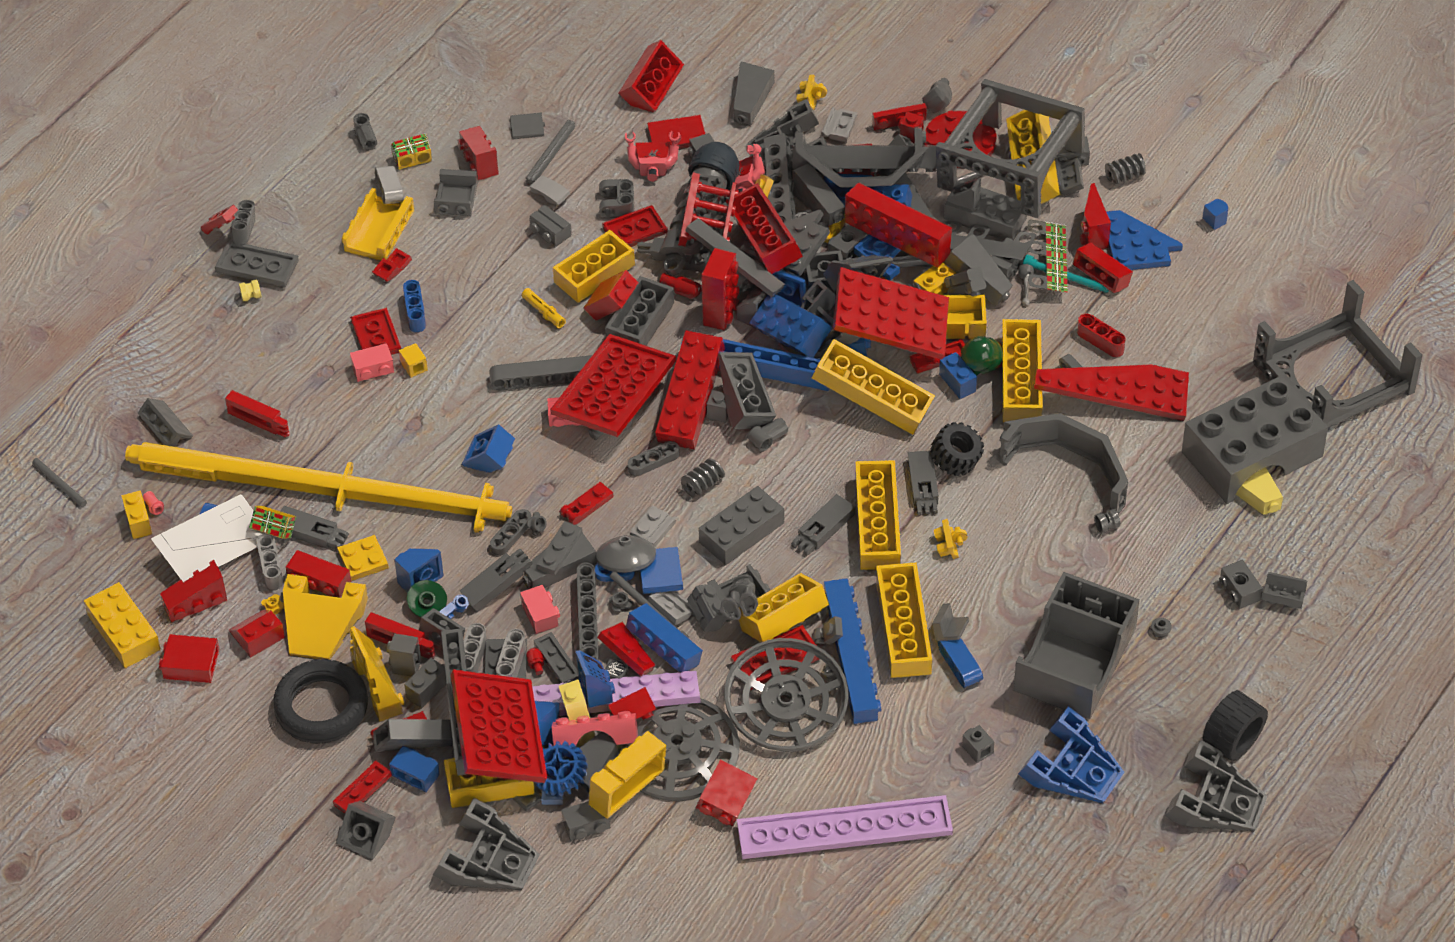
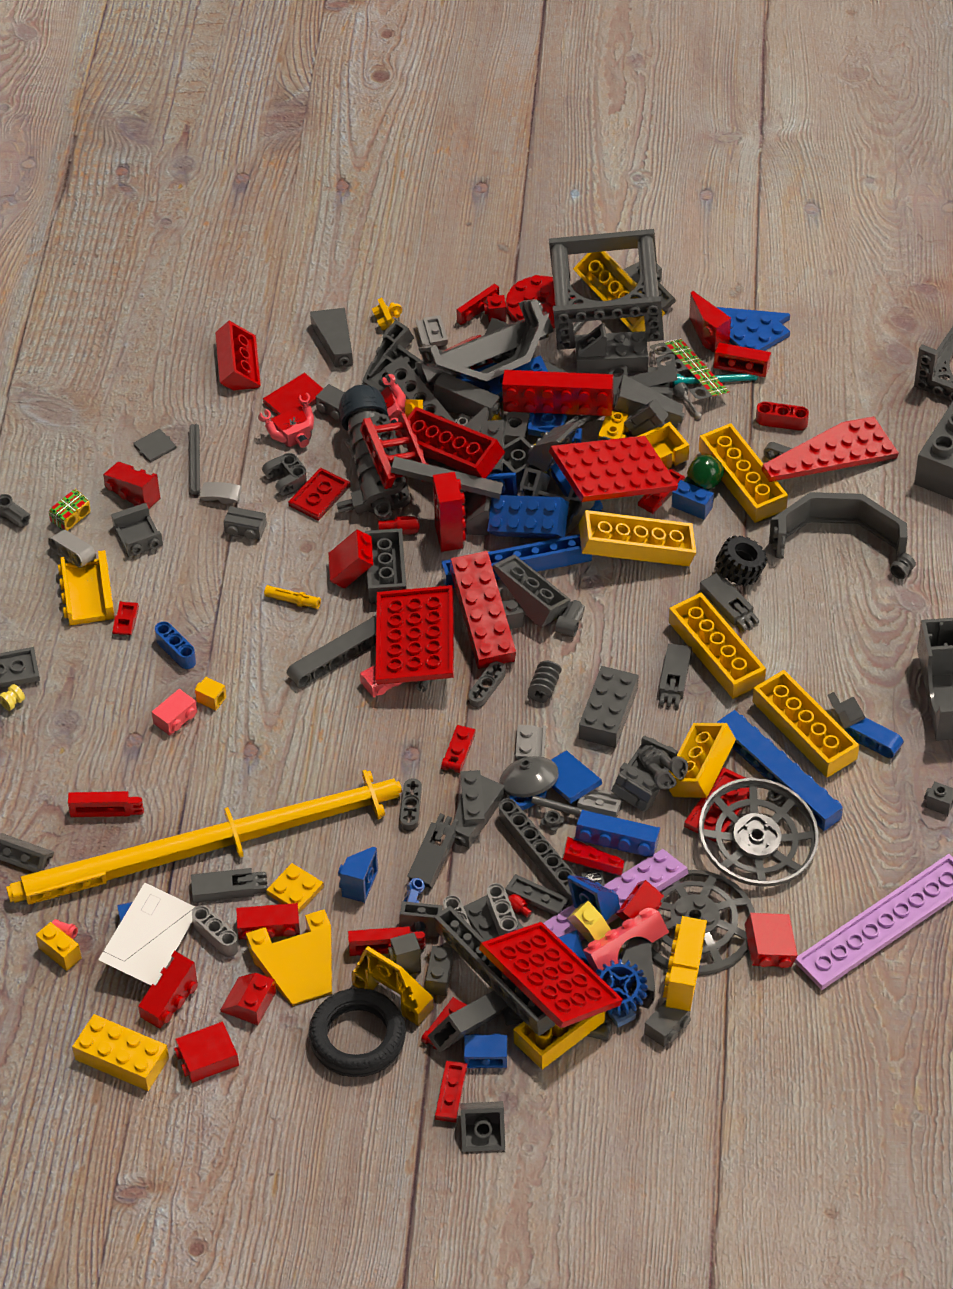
camera: 30 degrees left, 0 degrees up
(272, 522) = (196, 893): piece -> none
(273, 603) = (243, 962): yellow plate -> none
(376, 329) = (153, 683): red tile -> none
(423, 591) = (387, 890): dark green dish -> none
(489, 450) = (338, 741): blue slope -> none
(495, 858) = (610, 1091): dark grey wedge -> none
(536, 523) = (430, 786): dark grey plate -> none
(539, 609) = (489, 859): coral brick -> none
(593, 264) = (312, 541): yellow brick -> none
(829, 633) = (756, 761): dark grey plate -> none
(938, 96) = (500, 272): dark grey piece -> none
(952, 537) = (793, 645): yellow hips -> none
(1125, 167) = (698, 271): dark grey piece -> none
(1216, 213) = (798, 277): blue piece -> none

